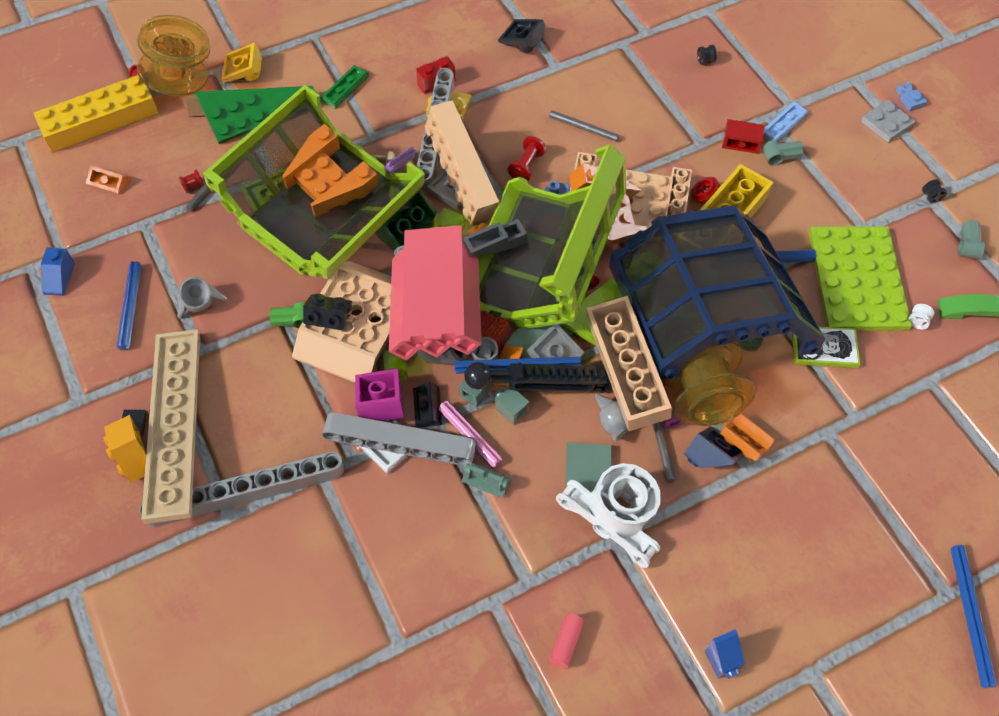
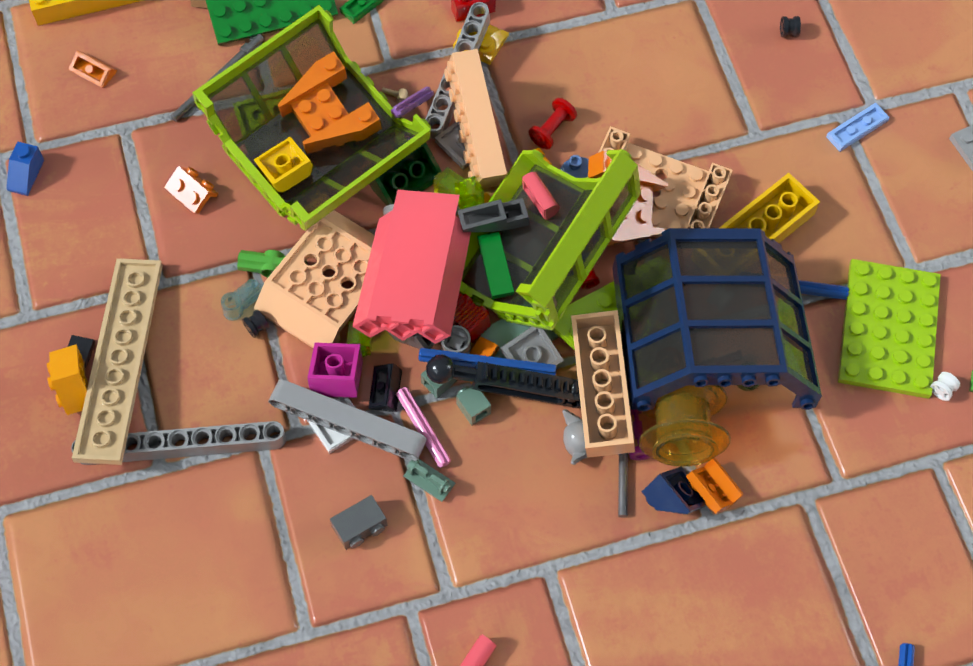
camera: 10 degrees right, 5 degrees up
(129, 305) = (93, 220): blue axle -> none
(187, 186) = (185, 84): red bush -> none
(197, 295) = (166, 223): light grey piece -> none
(213, 264) = (190, 188): none -> bracket
(278, 350) = (242, 298): none -> clear light blue piece
(296, 369) = (255, 323): none -> black wheel
(298, 228) = (284, 165): none -> yellow slope
(326, 311) = (297, 268): black bracket -> none
(429, 531) = (359, 522): none -> dark grey brick
(469, 222) = (470, 192): none -> clear neon green brick
(505, 281) = (495, 265): none -> green tile
(532, 215) = (540, 195): none -> coral brick
(585, 126) = (627, 92): flat silver bar -> none
(587, 463) = (536, 495): sand green tile -> none
(609, 517) = (546, 548): white piece -> none
(698, 191) = (736, 197): red gear -> none
(743, 136) = (804, 136): red brick -> none
(776, 152) = (838, 162): sand green piece -> none
(838, 349) = (840, 404): tile -> none

